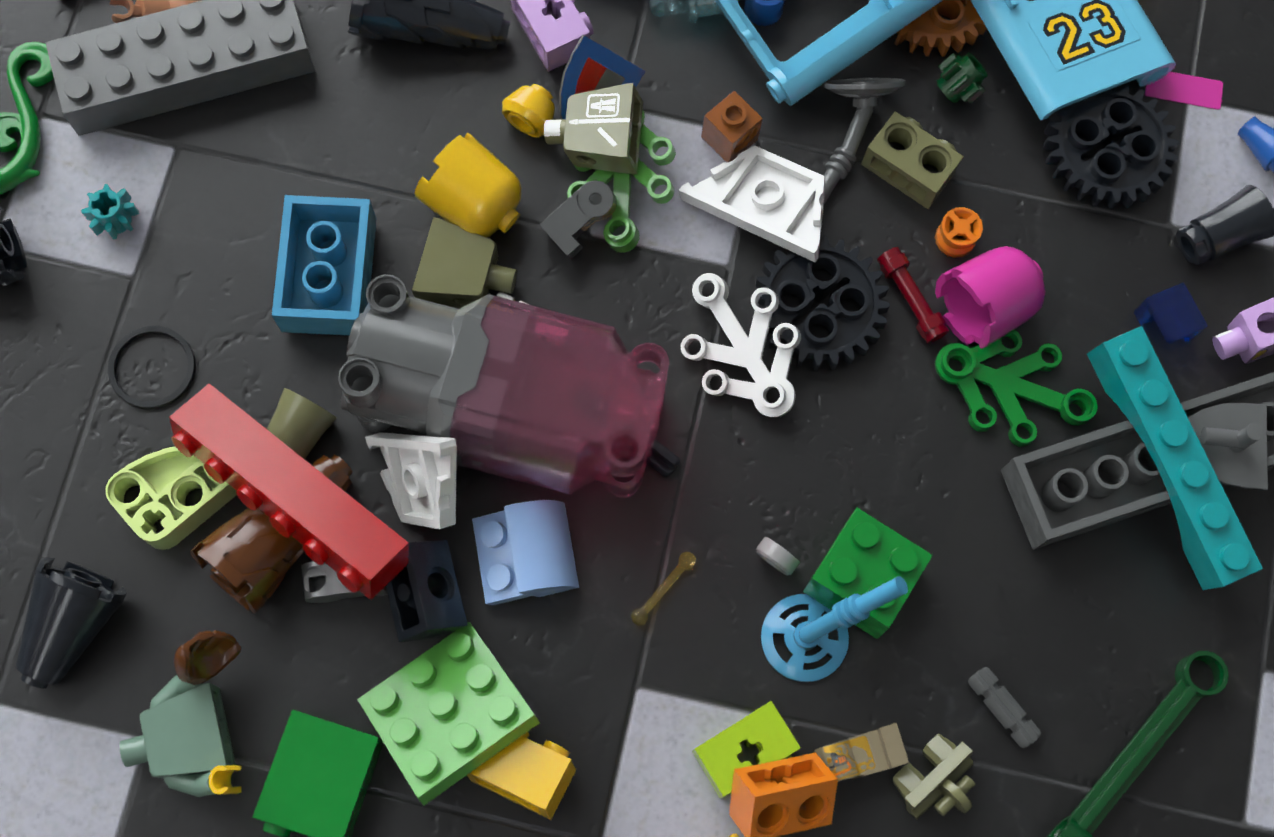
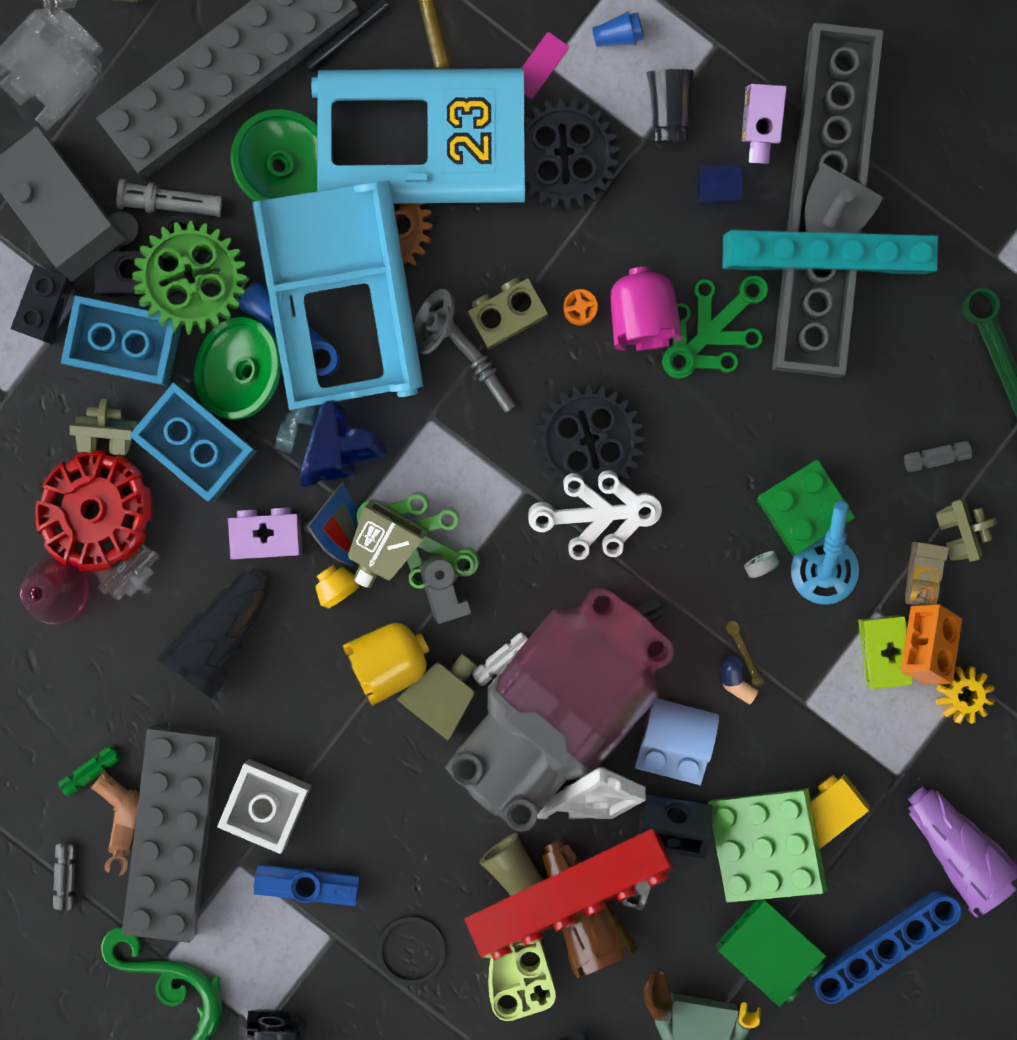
camera: 65 degrees left, 15 degrees up
(110, 211) = (286, 933): teal gear -> none
(185, 239) = (283, 883): none -> blue piece
(252, 133) = (264, 806): none -> white brick
(323, 264) = (397, 795): dark azure brick -> none
(626, 586) = (733, 679): none -> arm
(680, 43) = (335, 449): none -> clear blue piece
(731, 126) = (420, 439): dark orange brick -> none
(765, 198) = (490, 441): white wing -> none
(894, 265) = (642, 365): dark red bar -> none
(962, 78) = (459, 241): dark green gear -> none

